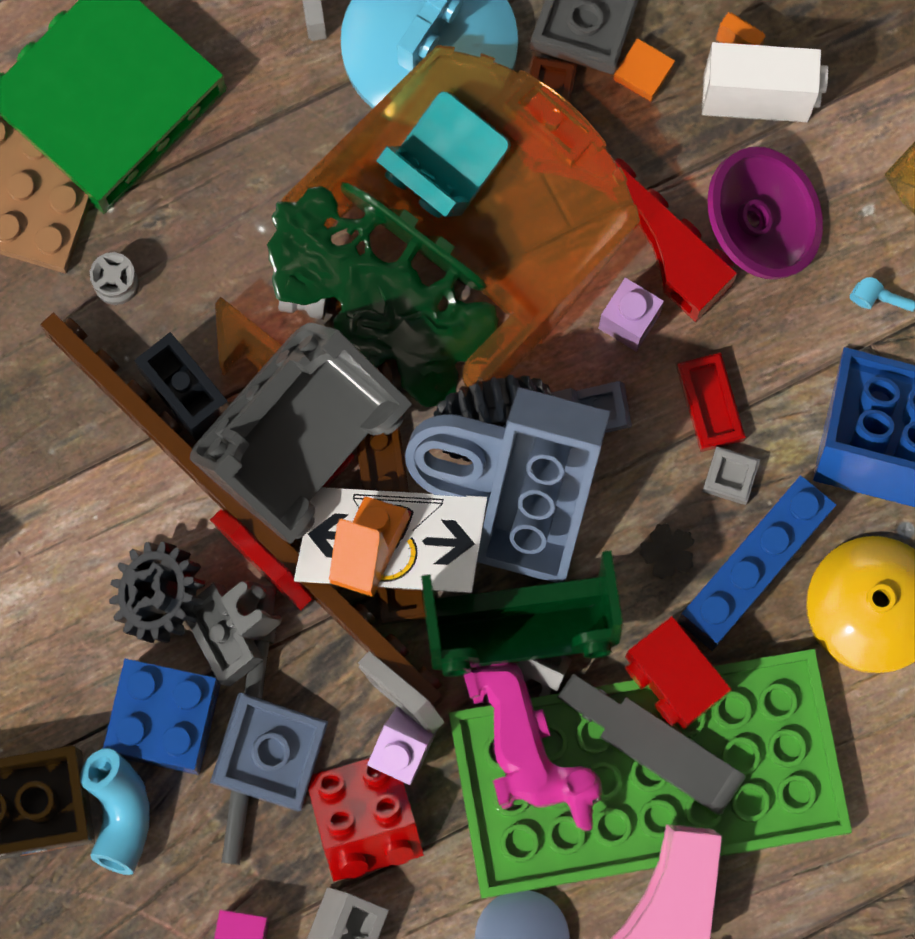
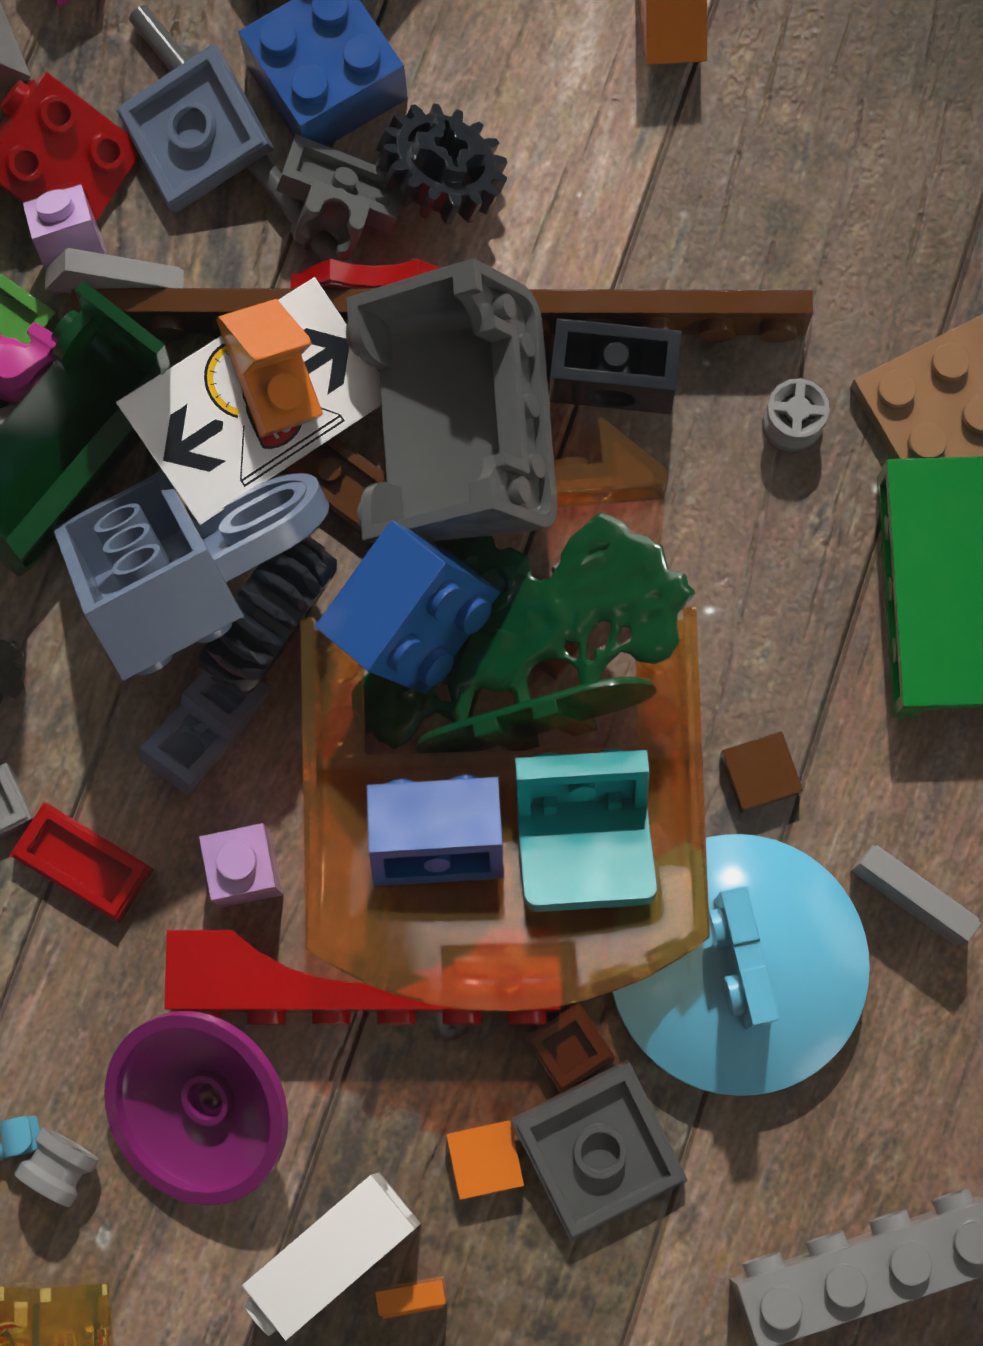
camera: 140 degrees right, 0 degrees up
(321, 122) = (761, 772): none -> reddish brown tile
(426, 343) = (408, 609): none -> blue brick
(517, 229) = (435, 831): none -> brick
(861, 256) = (56, 1167): none -> light grey wheel

